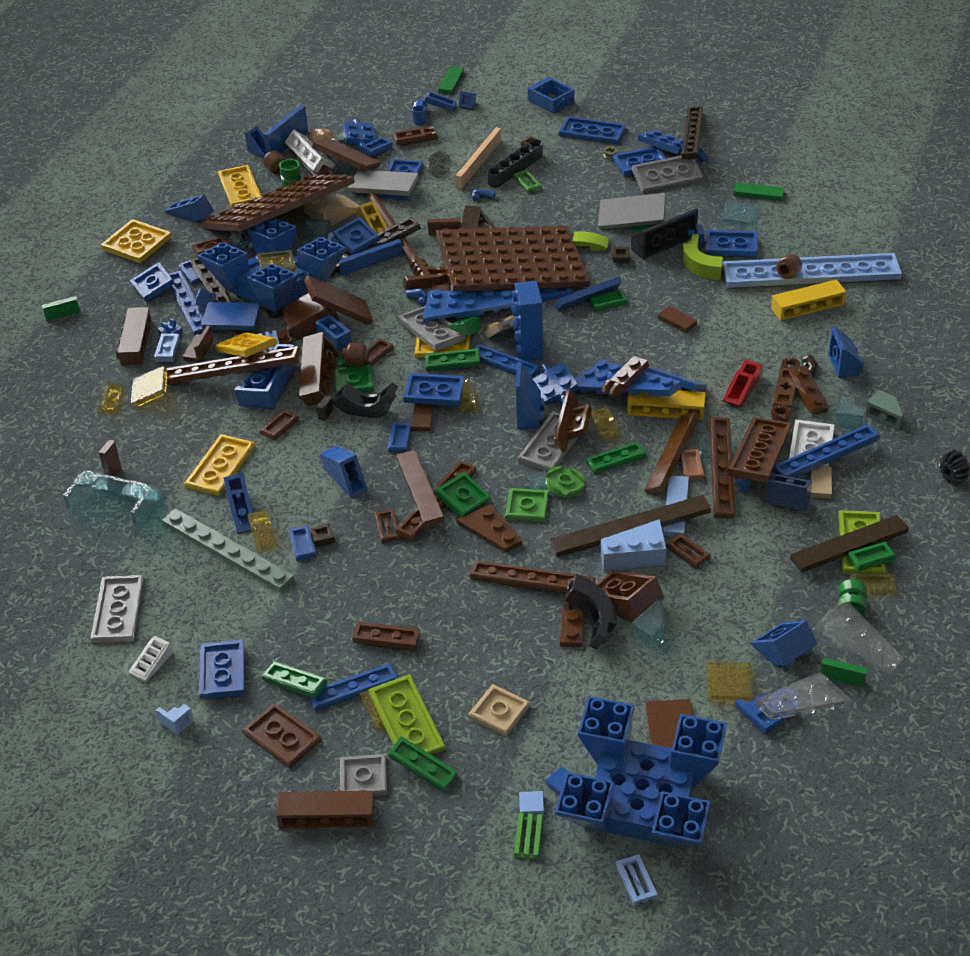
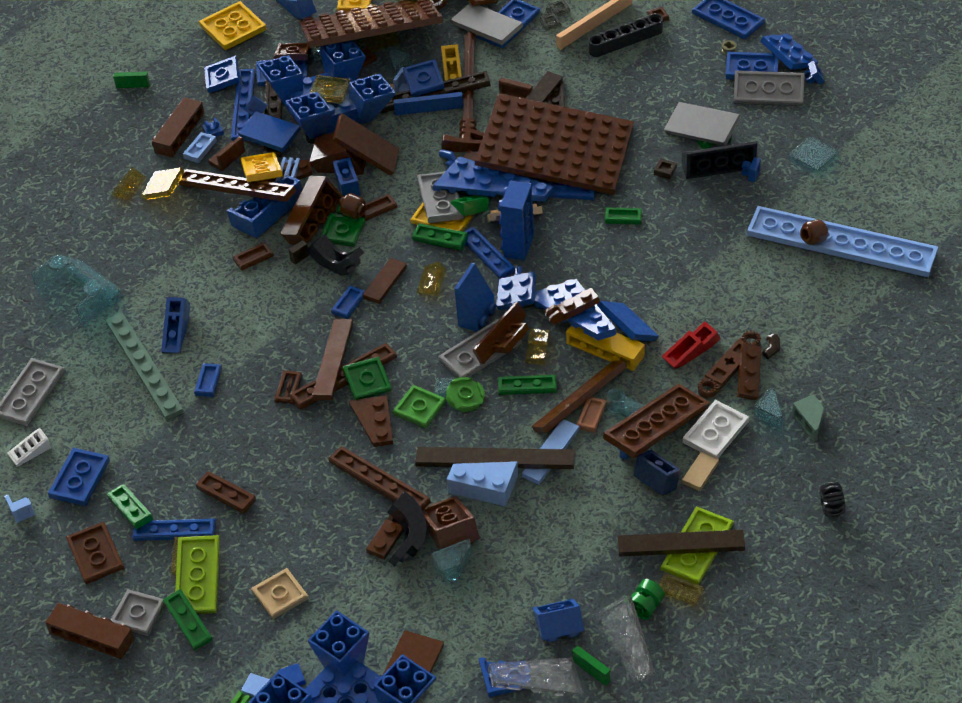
camera: 25 degrees right, 5 degrees up
(110, 458) = (89, 248): reddish brown tile -> none
(220, 461) = (182, 279): yellow tile -> none
(262, 530) = (179, 357): clear yellow slope -> none
(322, 535) = (227, 378): dark brown plate -> none
(331, 208) = (425, 39): tan slope -> none
(344, 469) = (278, 321): blue slope -> none
(434, 389) = (401, 263): blue plate -> none
(477, 193) = (569, 59): blue arm -> none
(524, 182) = (629, 67): bright green tile -> none
(585, 294) = (602, 203): blue tile -> none
(595, 241) = (649, 145): lime slope -> none
(677, 319) = (676, 256): reddish brown tile -> none
(686, 553) = (538, 512): reddish brown tile -> none
(692, 133) = (819, 49): dark brown tile -> none
(699, 263) = (734, 201): lime arch -> none
(720, 461) = (618, 411): reddish brown tile -> none
(728, 681) = (488, 637): clear yellow tile -> none
(731, 243) = (782, 187): blue plate -> none
(758, 191) = (850, 134): green tile -> none
(808, 300) = (815, 274): yellow brick -> none
(827, 452) = (719, 444): blue tile -> none
(844, 354) = (808, 345): blue slope -> none
(871, 556) = (692, 563): green tile -> none

